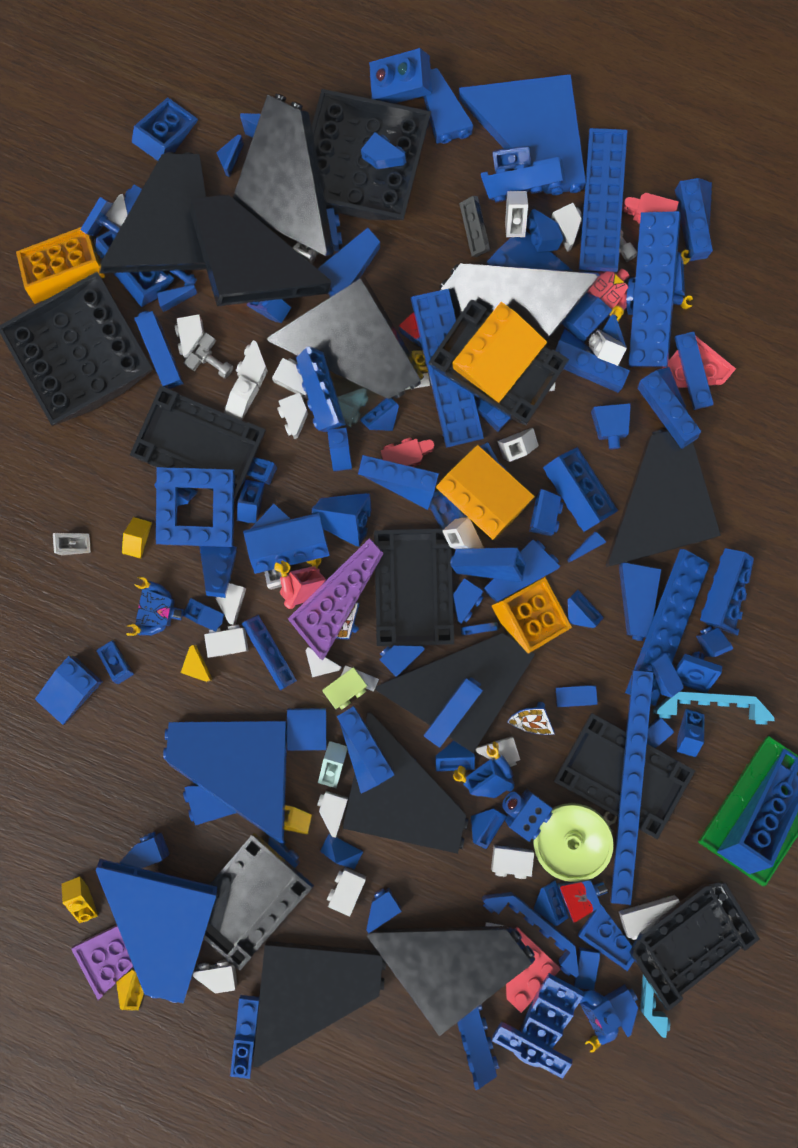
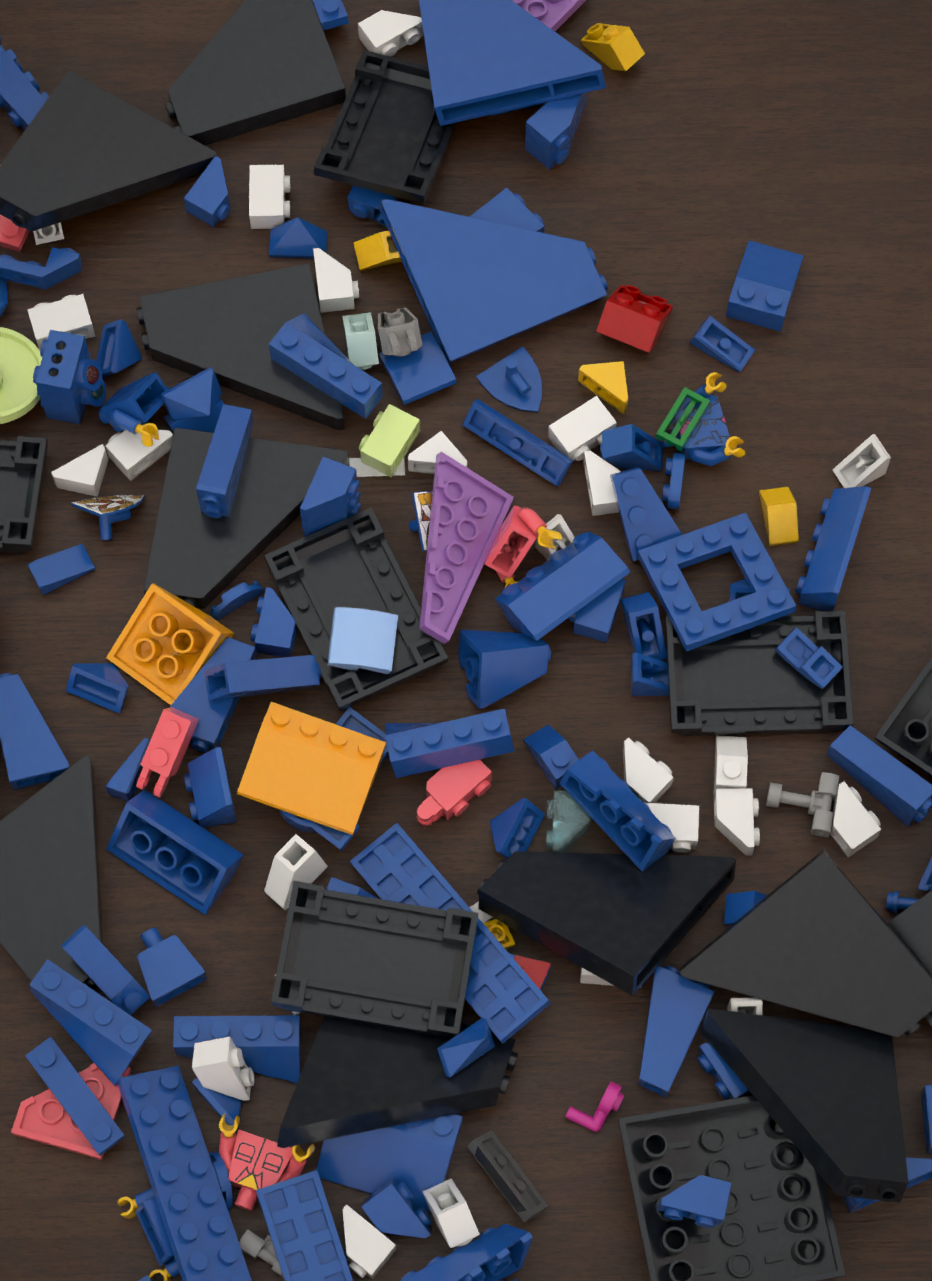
camera: 155 degrees right, 15 degrees down
(115, 497) = (833, 548): none -> blue slope
(150, 626) = (671, 438): none -> green tile
(158, 702) = (634, 317): none -> red slope
(165, 436) = (808, 659): none -> blue slope
(173, 297) = (910, 860): blue slope -> none
(192, 577) = (675, 469): none -> blue plate
(251, 696) = (514, 381): none -> blue shield
(308, 753) = (399, 332): none -> light grey hinge
(400, 242) = (611, 1100): none -> dark pink plate
(419, 563) = (362, 639): none -> light blue slope
(452, 768) = (193, 397): none -> blue slope
(462, 534) = (318, 700): white slope -> none
(468, 289) = (466, 1047): none -> blue slope
(499, 352) = (378, 968): light orange slope -> none
(538, 750) = (83, 473): none -> white slope
(561, 546) = (167, 748): none -> coral hinge
(587, 317) = (267, 1105): blue slope -> none
(650, 427) = (105, 970): none -> blue slope

